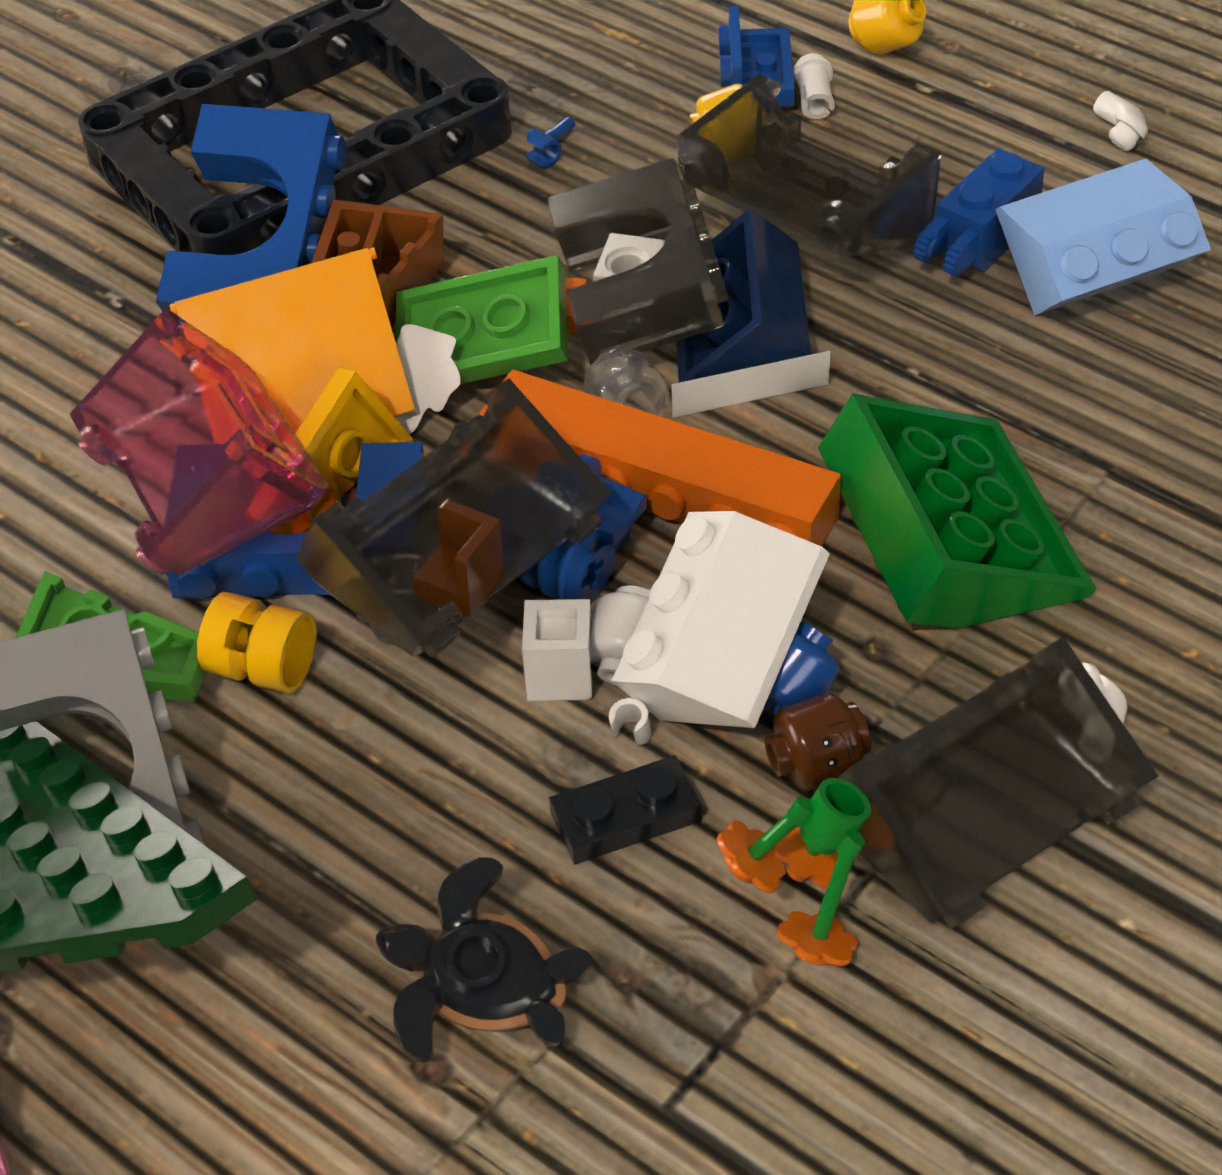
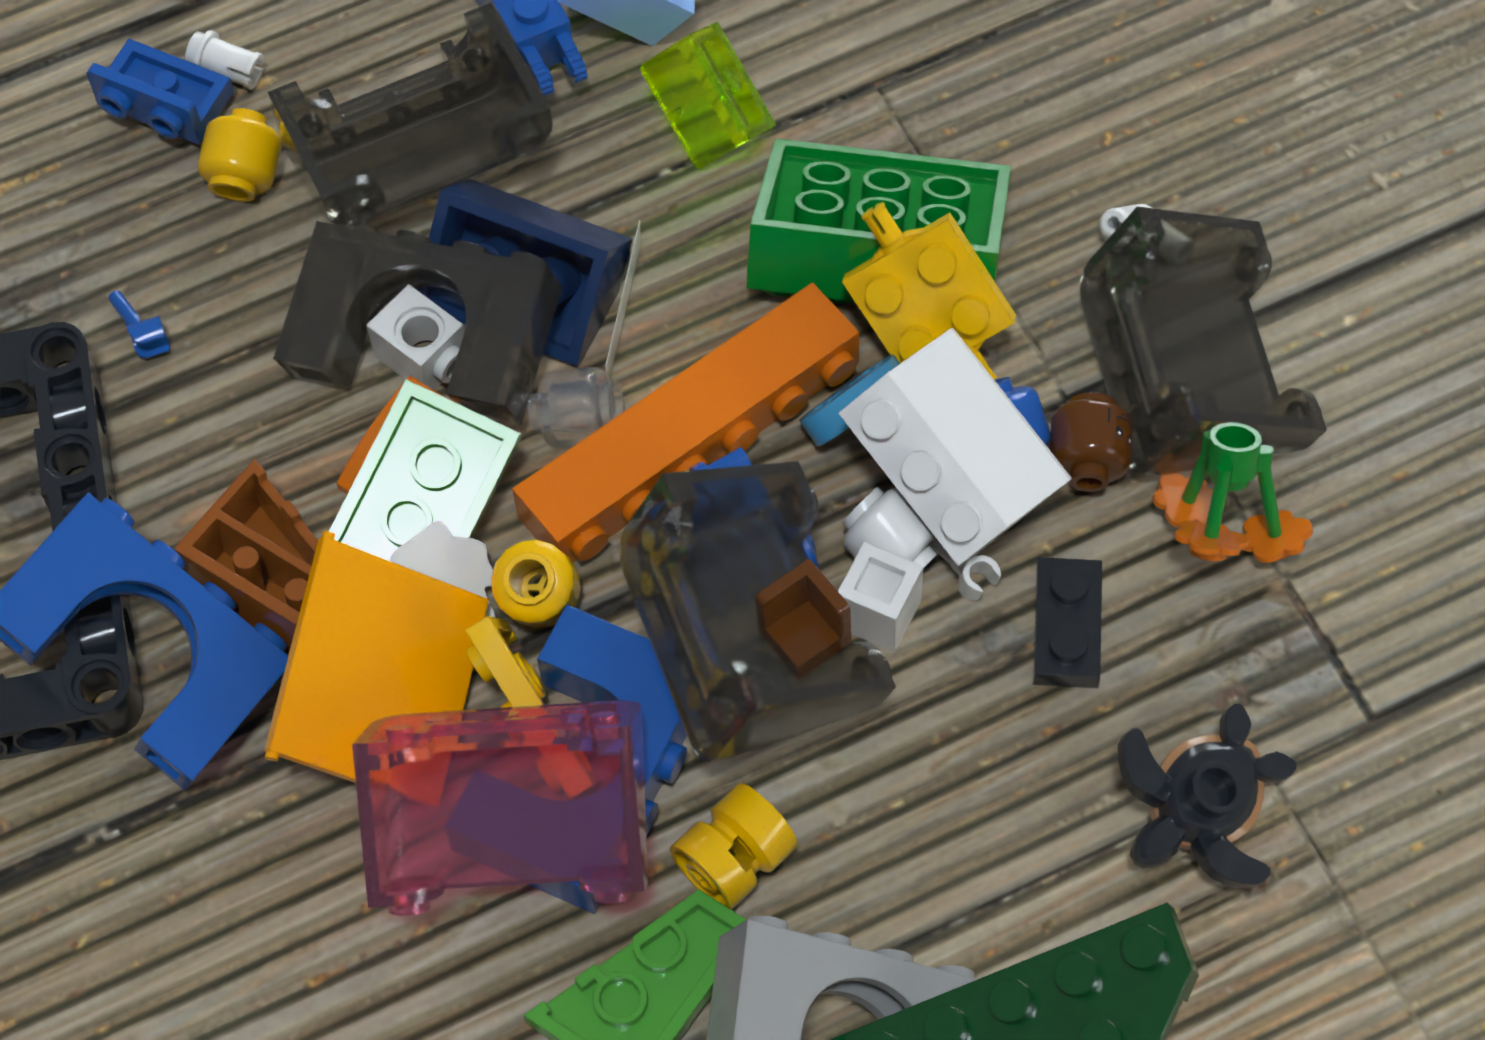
camera: 65 degrees left, 15 degrees up
(430, 412) = (515, 578): none -> yellow head
(877, 550) = (925, 286): none -> yellow plate
(995, 345) = (707, 95): none -> clear neon green panel

